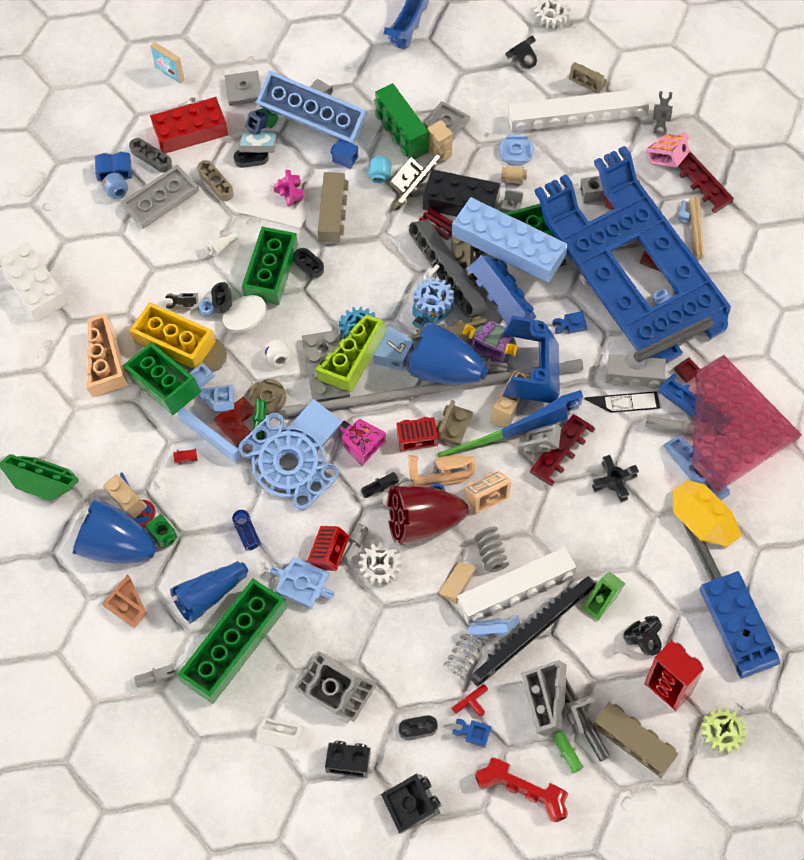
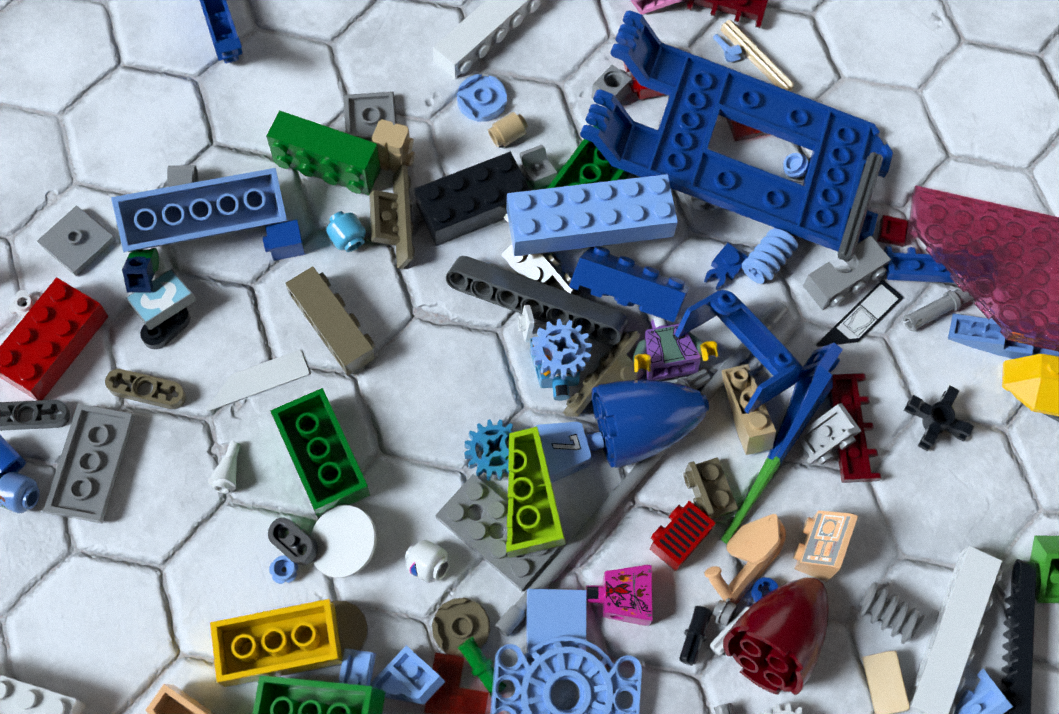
camera: 45 degrees left, 5 degrees up
(184, 299) = (243, 580): black plate -> none
(286, 188) = (250, 334): dark pink hips -> none
(310, 263) = (362, 412): black plate -> none
(440, 221) = (473, 246): dark red tile -> none
(599, 331) = (768, 255): none -> light blue piece

